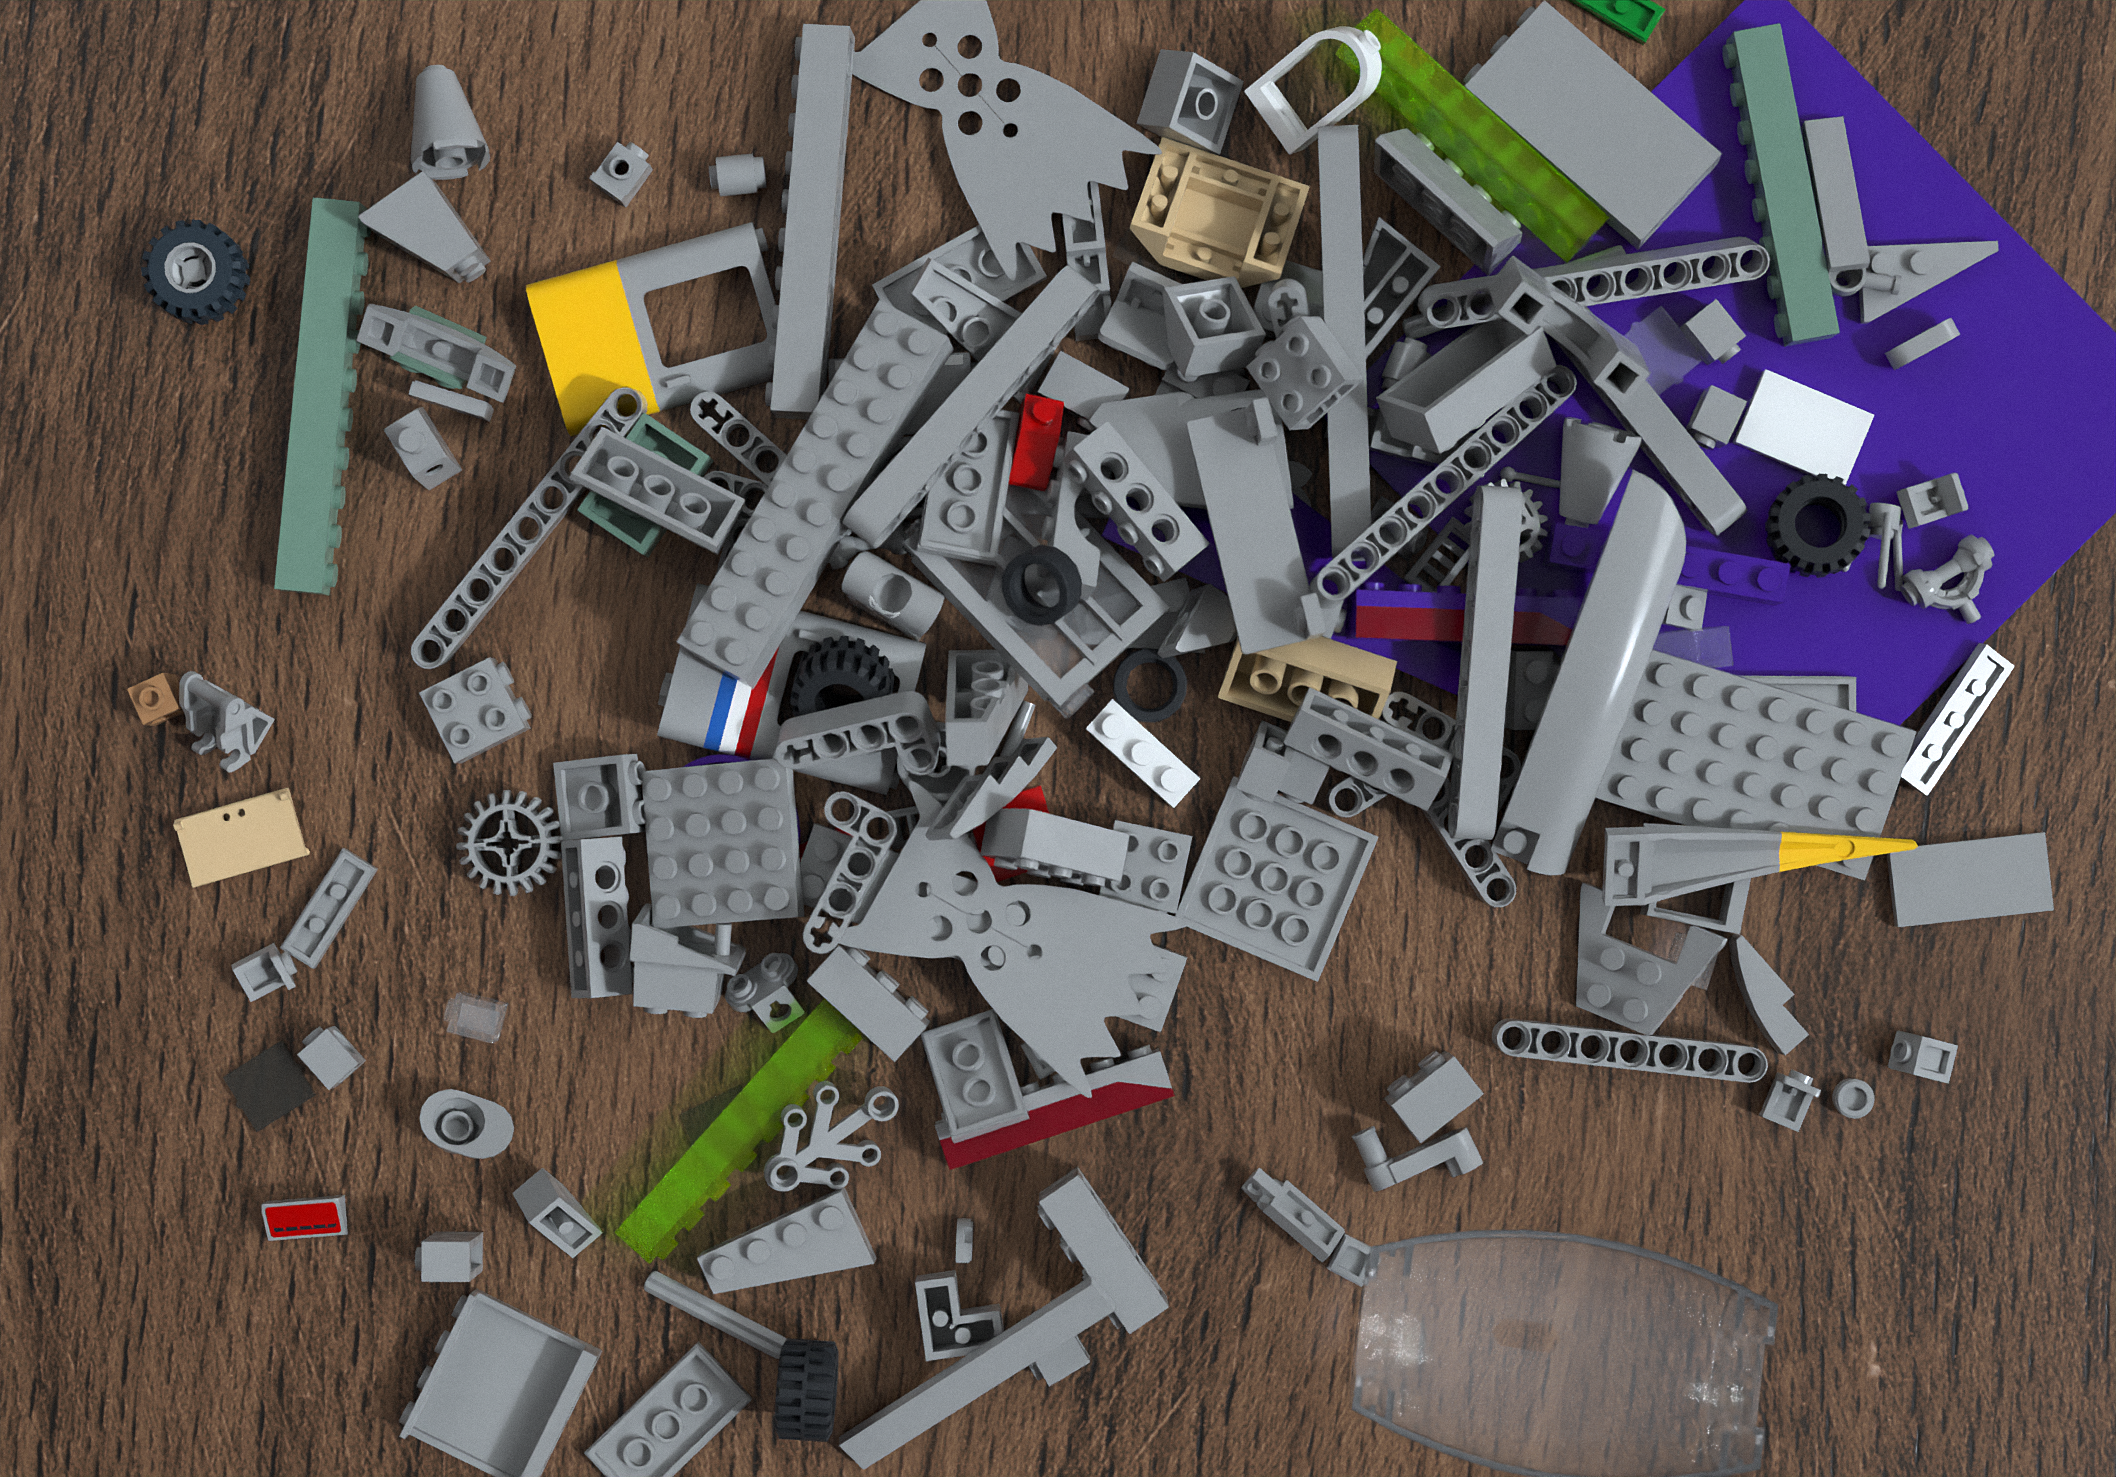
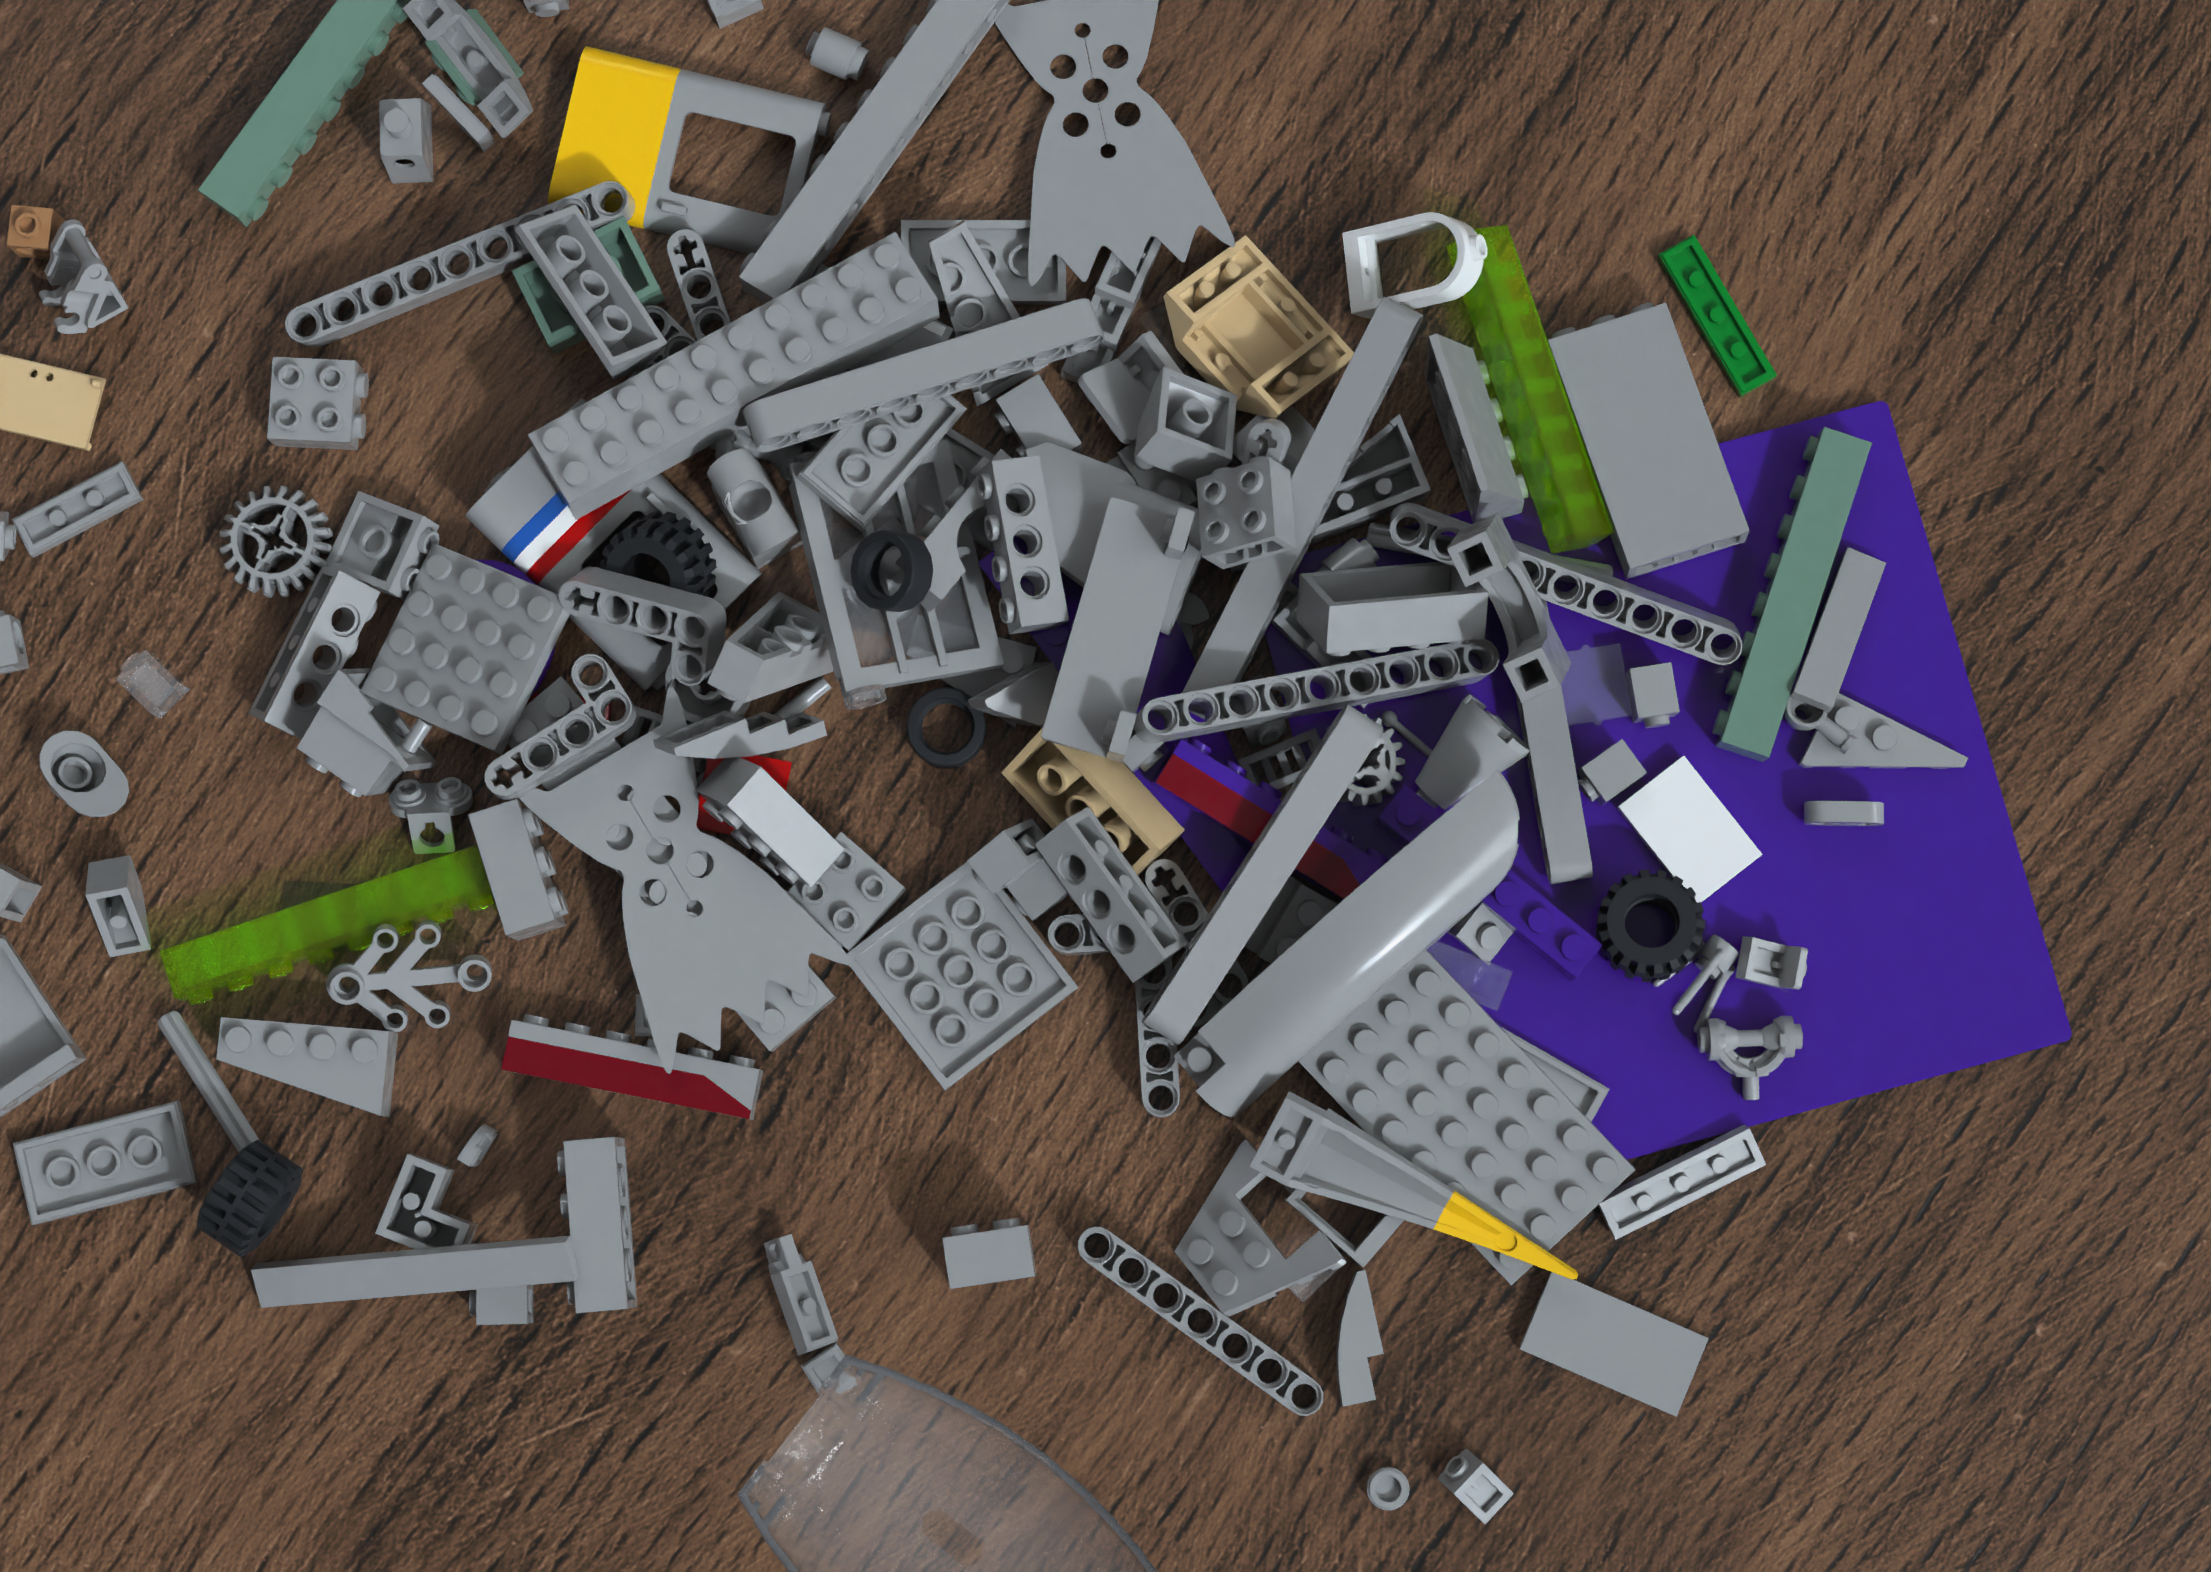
camera: 35 degrees right, 5 degrees down
(974, 1076) = (575, 996): light grey tile -> none
(1036, 441) = (966, 443): red slope -> none
(1142, 753) = (902, 786): white brick -> none
(1190, 100) = (1289, 216): light grey slope -> none
(1453, 1149) = (984, 1321): light grey beam -> none
(1789, 1099) = (1325, 1453): light grey bracket -> none

